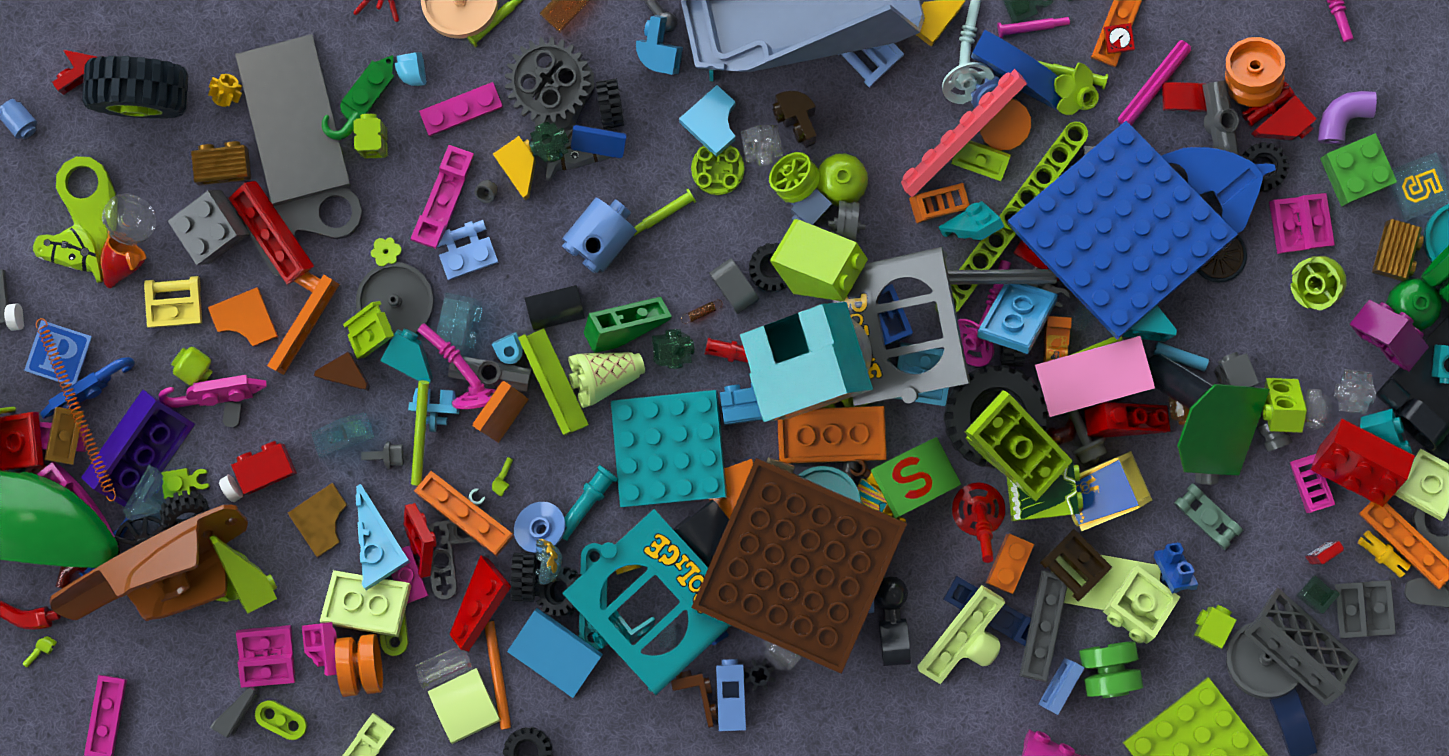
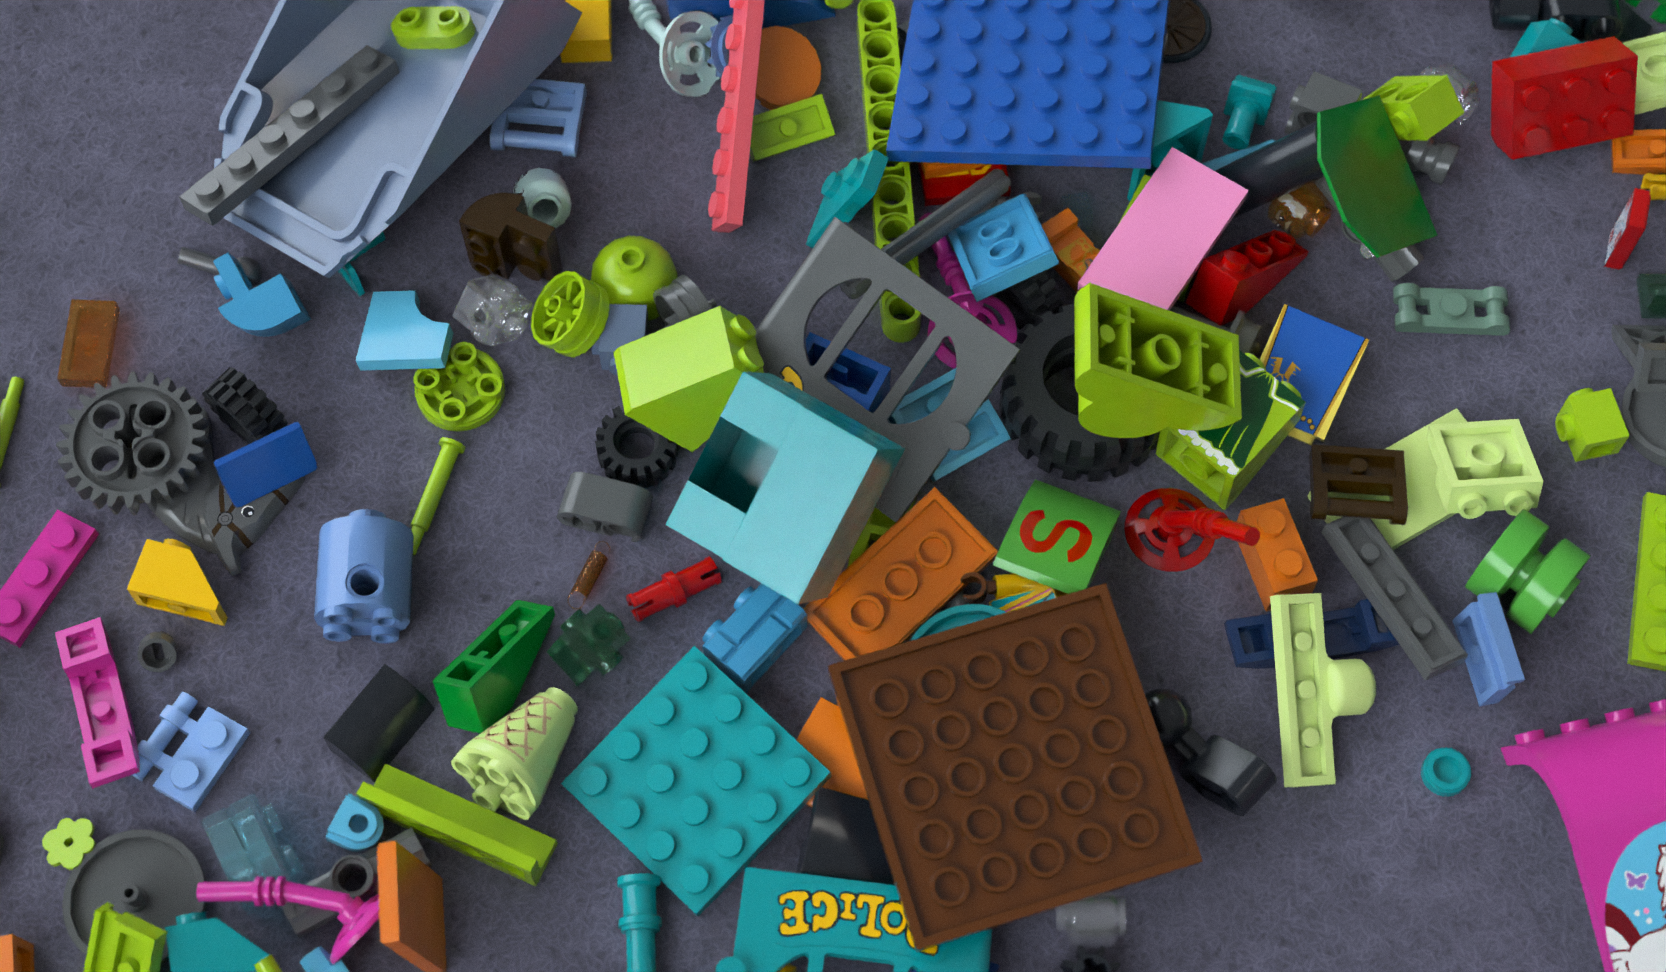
camera: 45 degrees left, 20 degrees down
(555, 149) = (196, 512): clear green brick -> none
(831, 102) = (544, 195): none -> light aqua head
(919, 209) = (767, 237): orange slope -> none
(994, 719) = (1445, 771): none -> teal tile
(1175, 570) = (1481, 396): blue hips -> none
(1210, 335) = (1246, 104): none -> teal bracket
(1302, 487) = (1533, 196): dark pink slope -> none
(1355, 391) = (1472, 37): clear brick -> none

